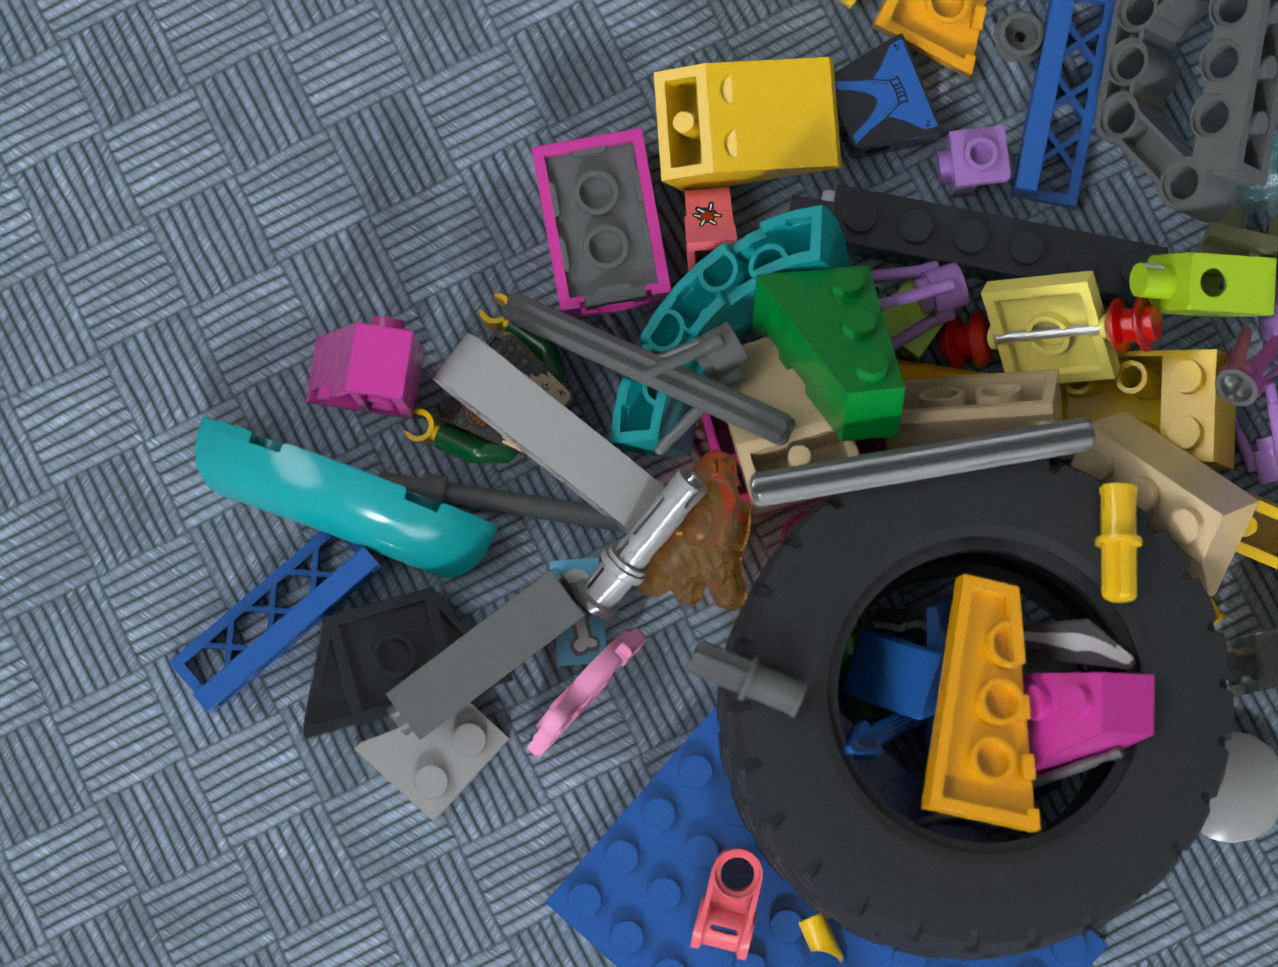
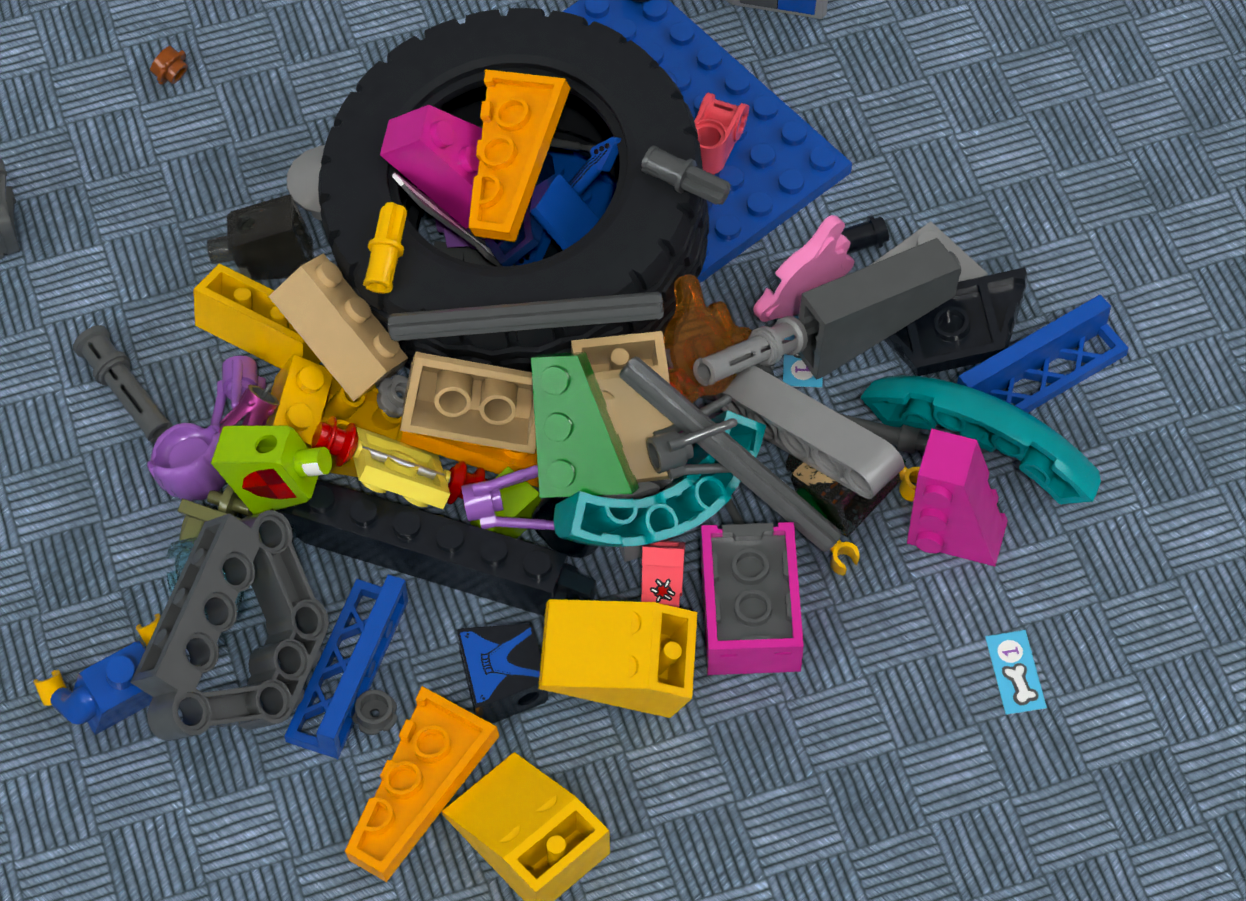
camera: 175 degrees left, 25 degrees down
(283, 199) = (1015, 672): none -> medium azure sticker
(522, 786) = (867, 234): none -> black pin
(973, 159) = (435, 604): medium lavender bracket -> none

